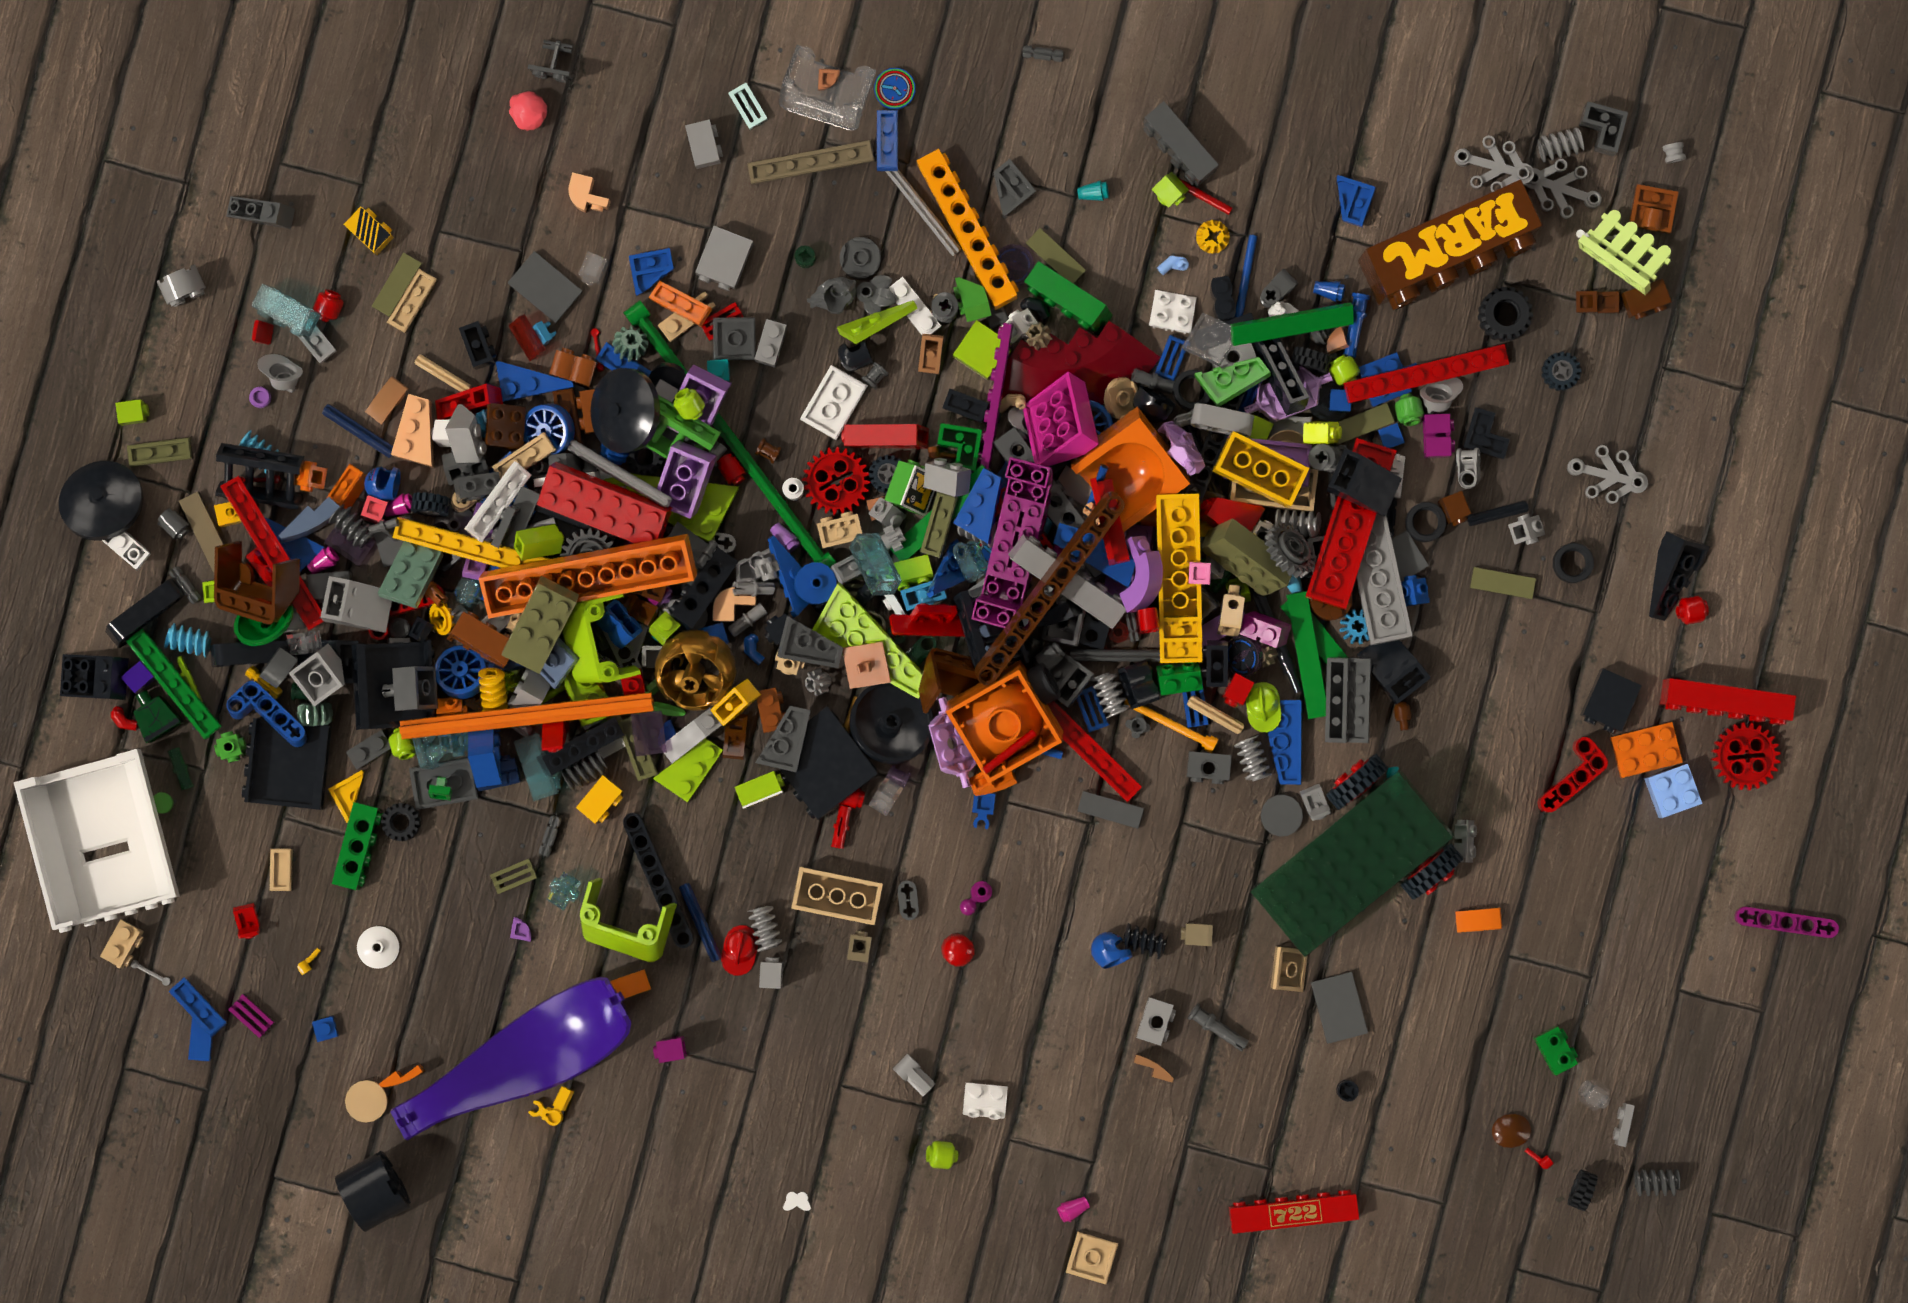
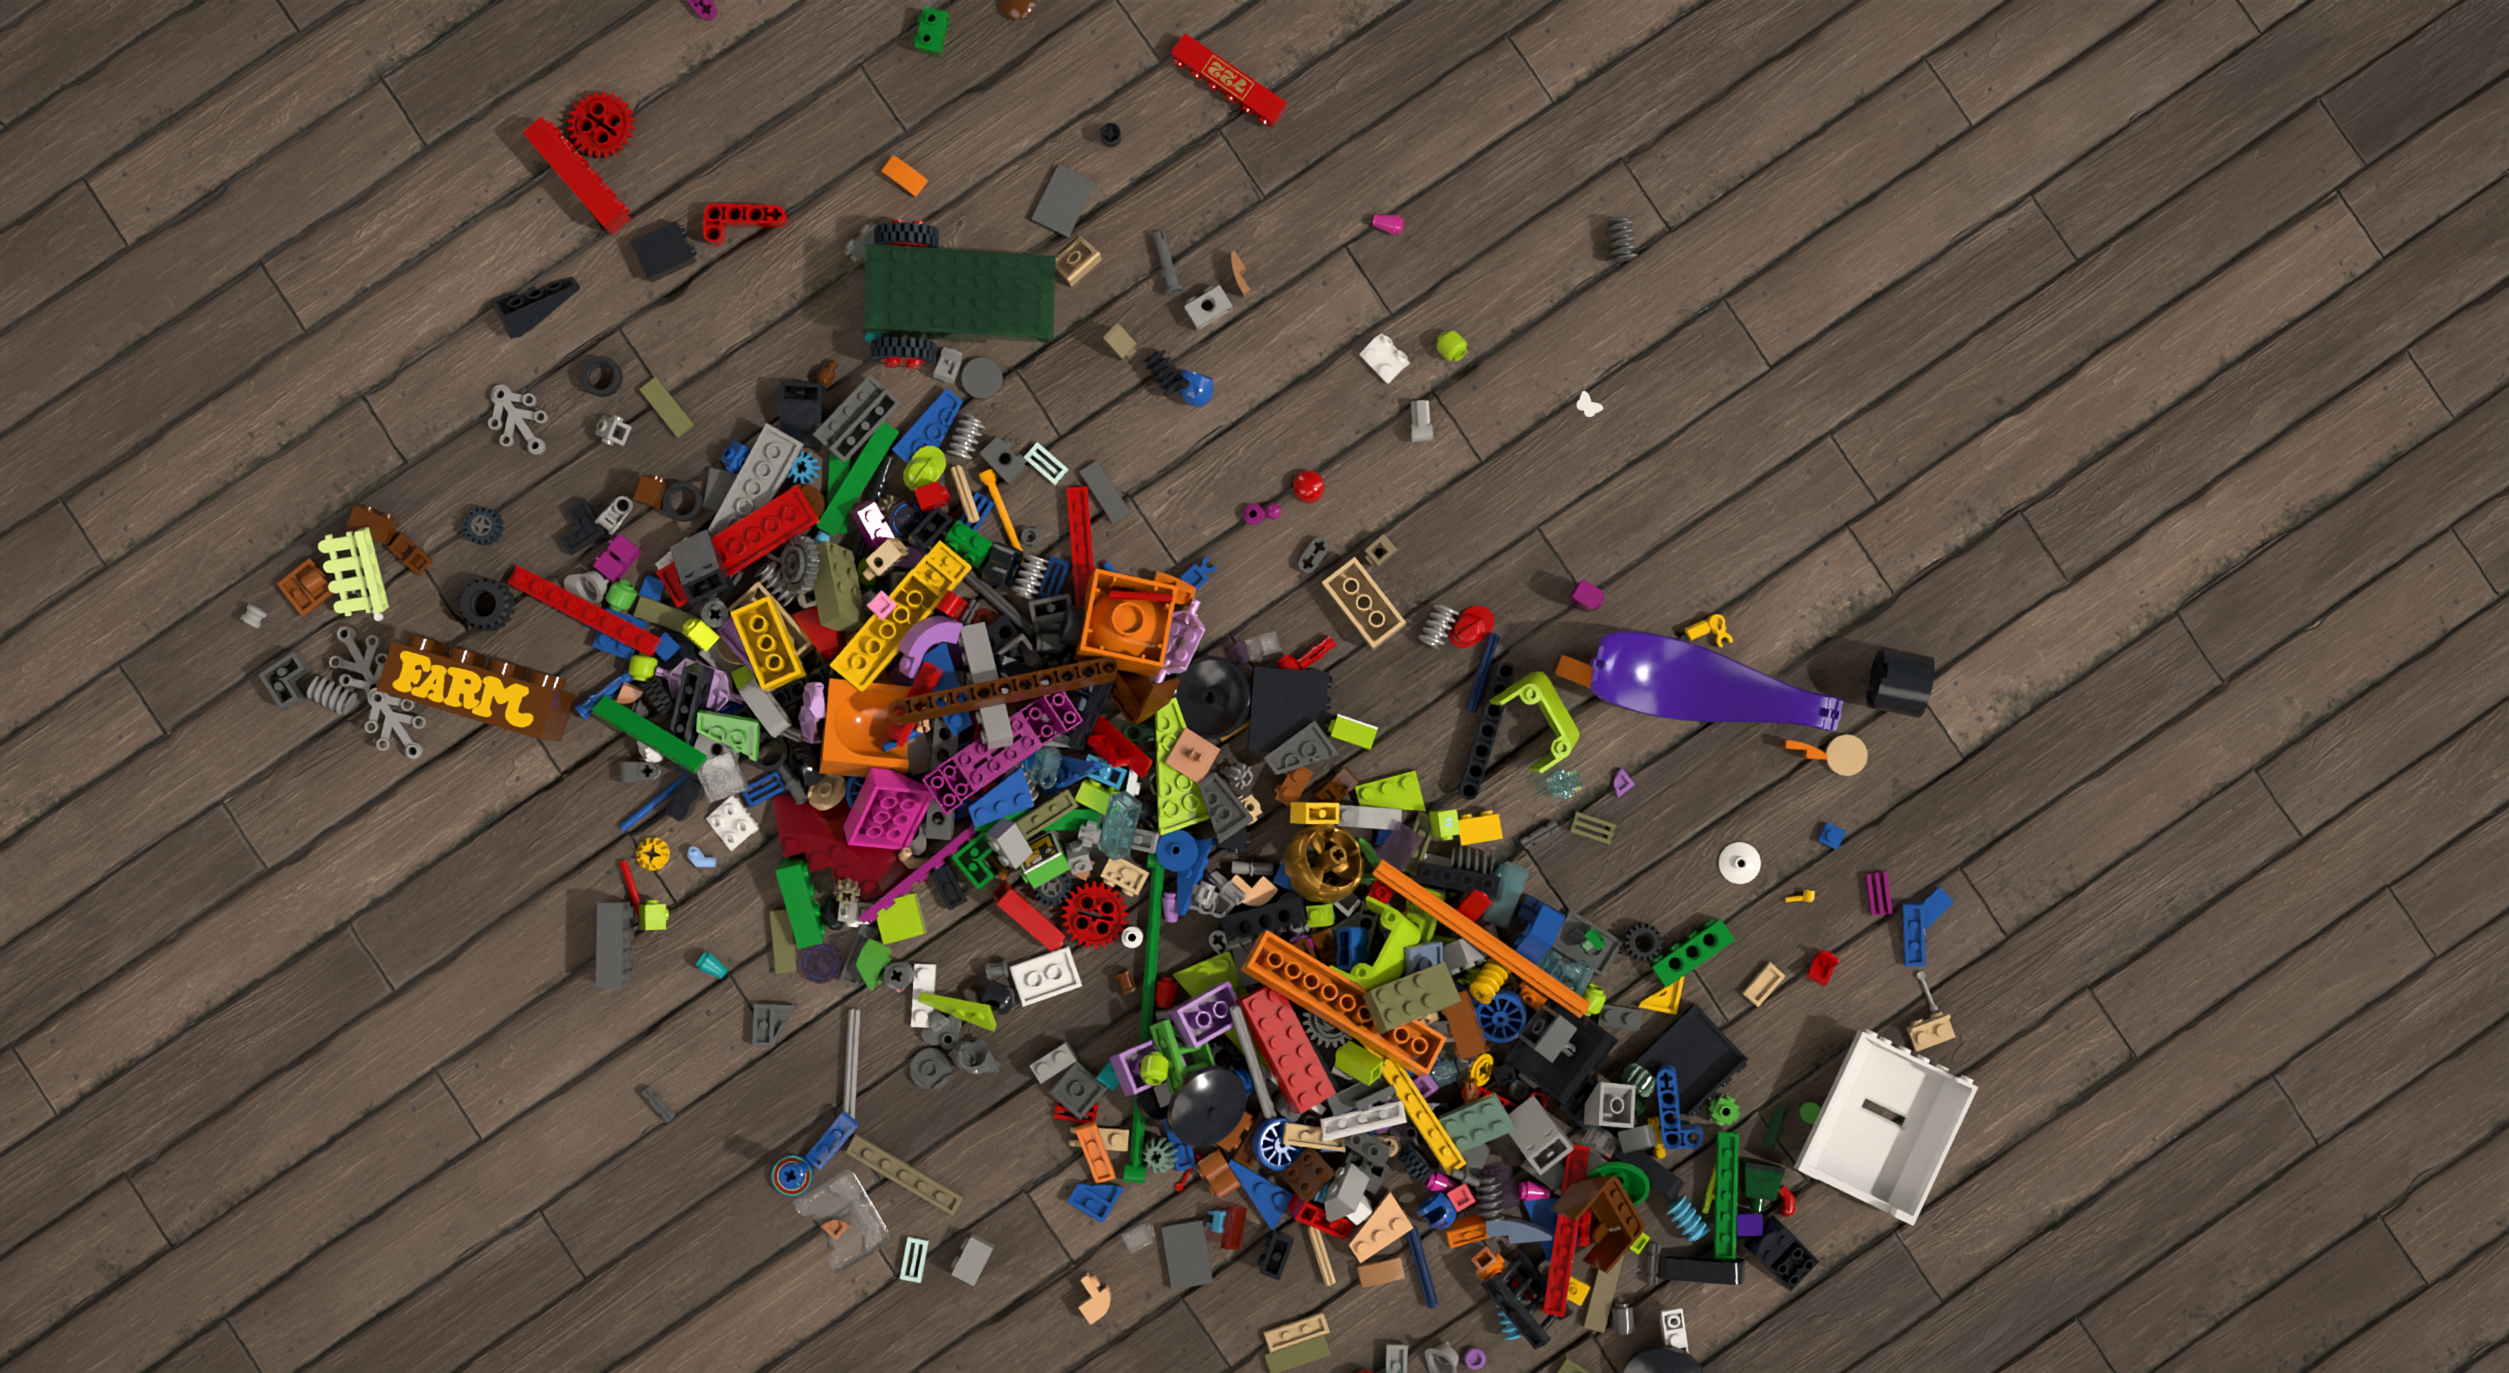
camera: 140 degrees left, 0 degrees up
(629, 780) = (1444, 824): none -> lime brick
(724, 258) = (1033, 1158): light grey brick -> none
(750, 648) = (1269, 843): blue arm -> none
(771, 973) = (1462, 587): light grey brick -> none
(804, 260) = (974, 1103): clear green wheel -> none
(892, 93) = (794, 1172): none -> blue pin
(930, 353) = (940, 949): medium nougat slope -> none
(998, 296) = (806, 1090): light orange brick -> none
(1091, 1257) = (1405, 176): tan tile -> none
(1156, 792) = (1058, 475): none -> light aqua tile
(1330, 290) = (600, 736): blue cone -> none
(1354, 200) = (522, 788): blue wing -> none
(1497, 513) = (623, 461): black axle -> none
(1646, 750) = (670, 193): orange plate -> none
(1673, 791) = (677, 145): light blue brick -> none
(1692, 610) = (544, 265): red head -> none

